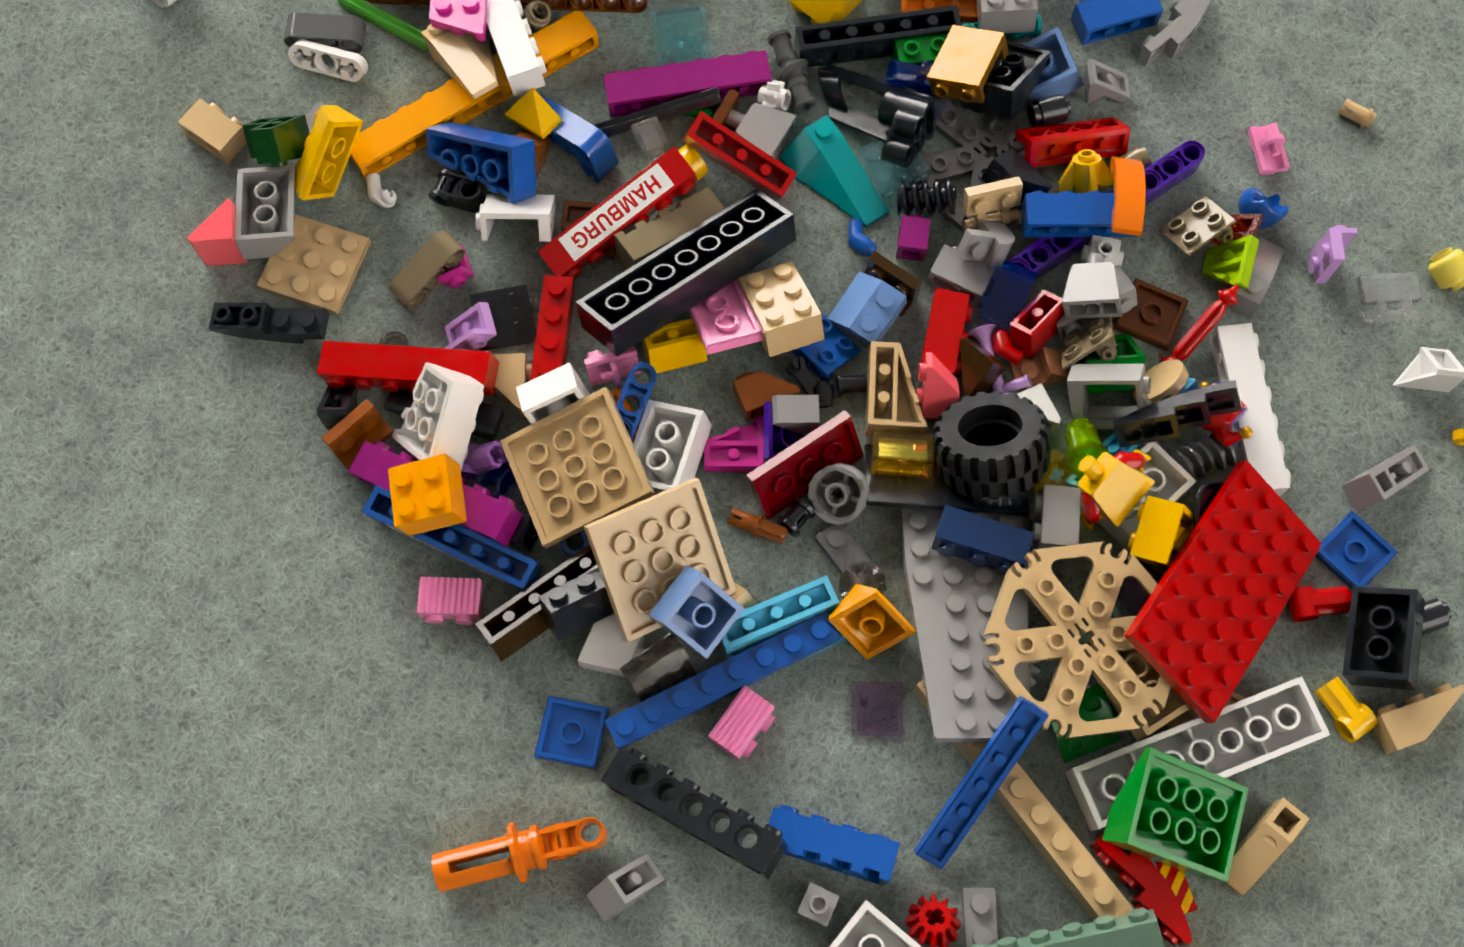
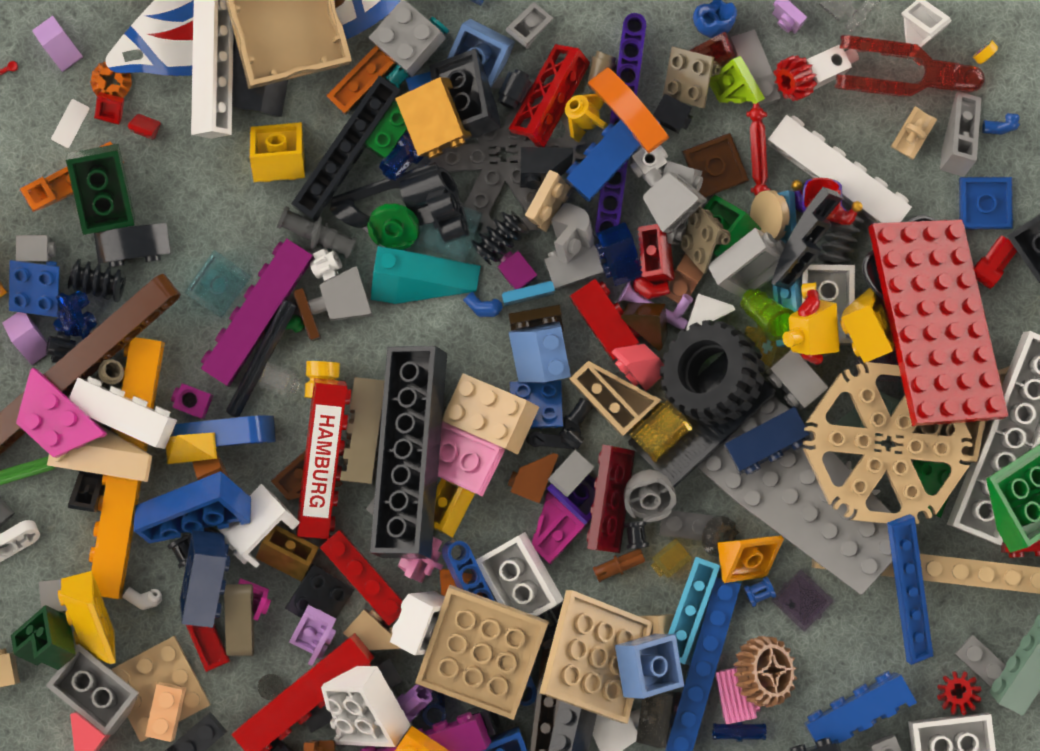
camera: 45 degrees left, 15 degrees up
(297, 274) = (165, 711): none -> light nougat brick
(386, 267) = (208, 646): none -> red tile
(422, 79) = (86, 492): none -> black slope
(434, 206) = (204, 579): none -> dark blue brick
(517, 257) = (287, 552): none -> pearl gold brick
(572, 83) = (203, 400): none -> magenta brick
(712, 757) = (739, 731): none -> clear blue pin
(739, 156) = (353, 336): red brick -> none
(776, 728) = (761, 655): none -> medium nougat gear
(803, 561) = (670, 559): none -> clear yellow brick
(849, 662) = (755, 598): none -> blue bush
(855, 116) = (393, 226): none -> green tile
(905, 253) = (528, 293): none -> dark azure tile
(1156, 243) = (673, 114): none -> black brick
(1288, 295) = (795, 78): none -> red gear
(1318, 321) = (831, 63): none -> white torso
(1345, 437) = (913, 133): none -> tan hips
(1410, 414) = (937, 73): none -> clear red piece
(1429, 508) = (1000, 128): none -> blue arm

